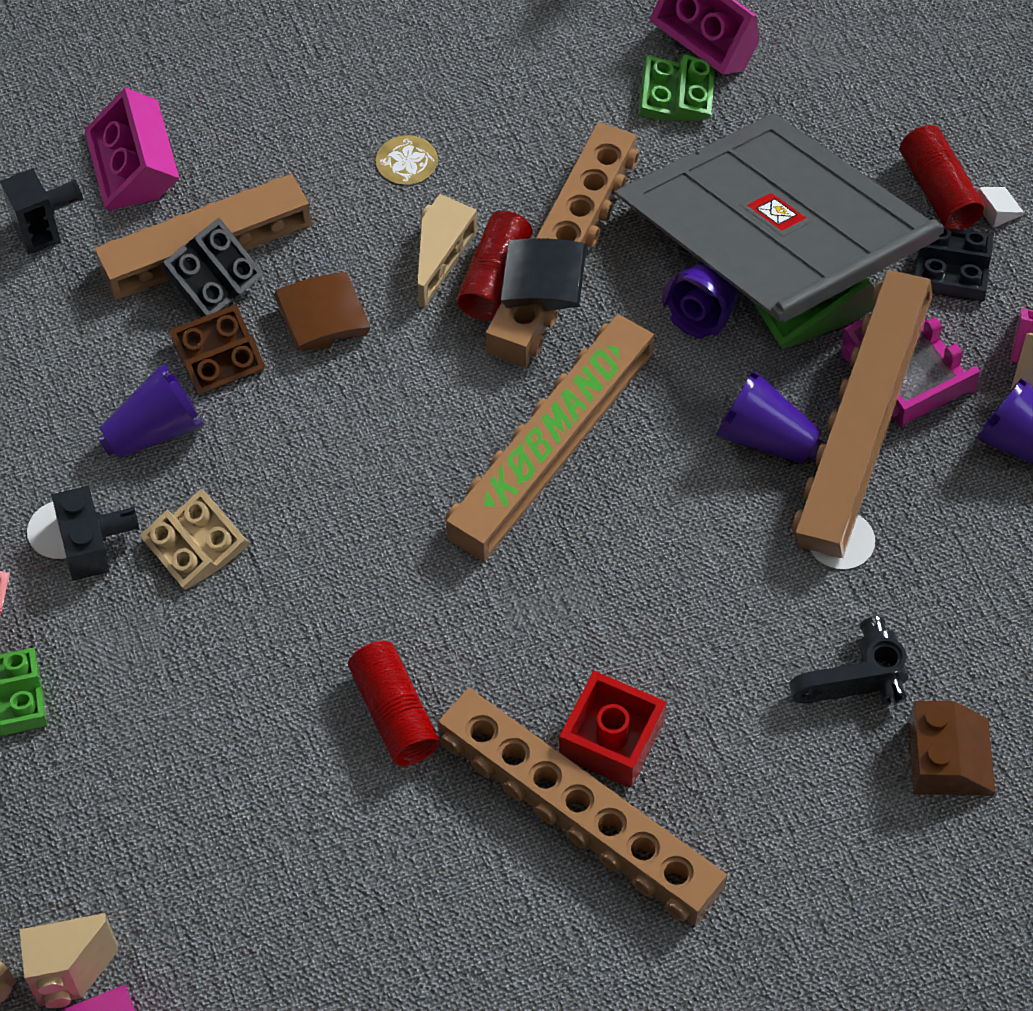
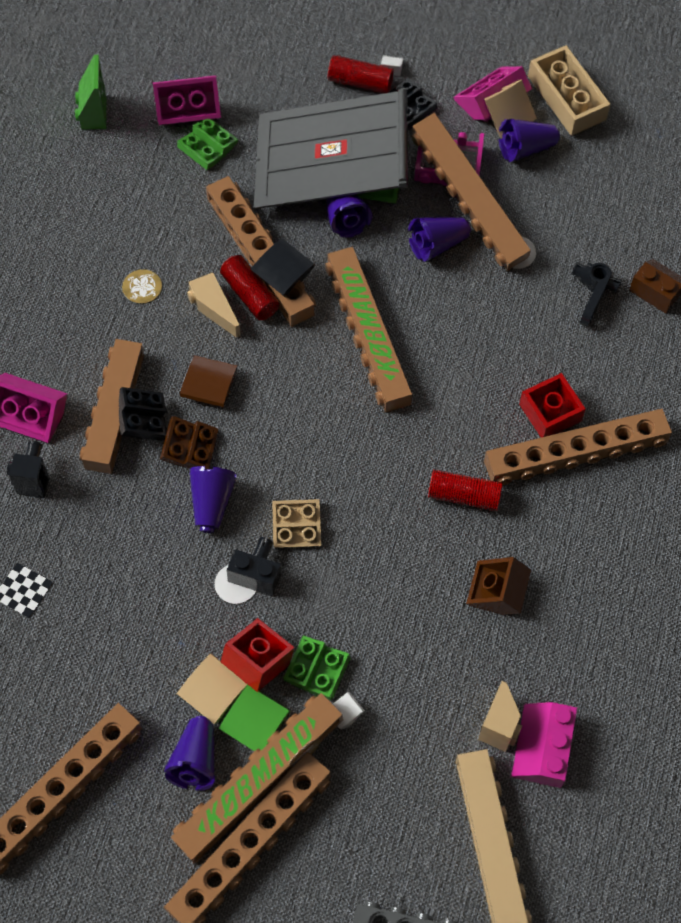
camera: 55 degrees left, 5 degrees up
(280, 839) = (499, 585): none -> reddish brown slope

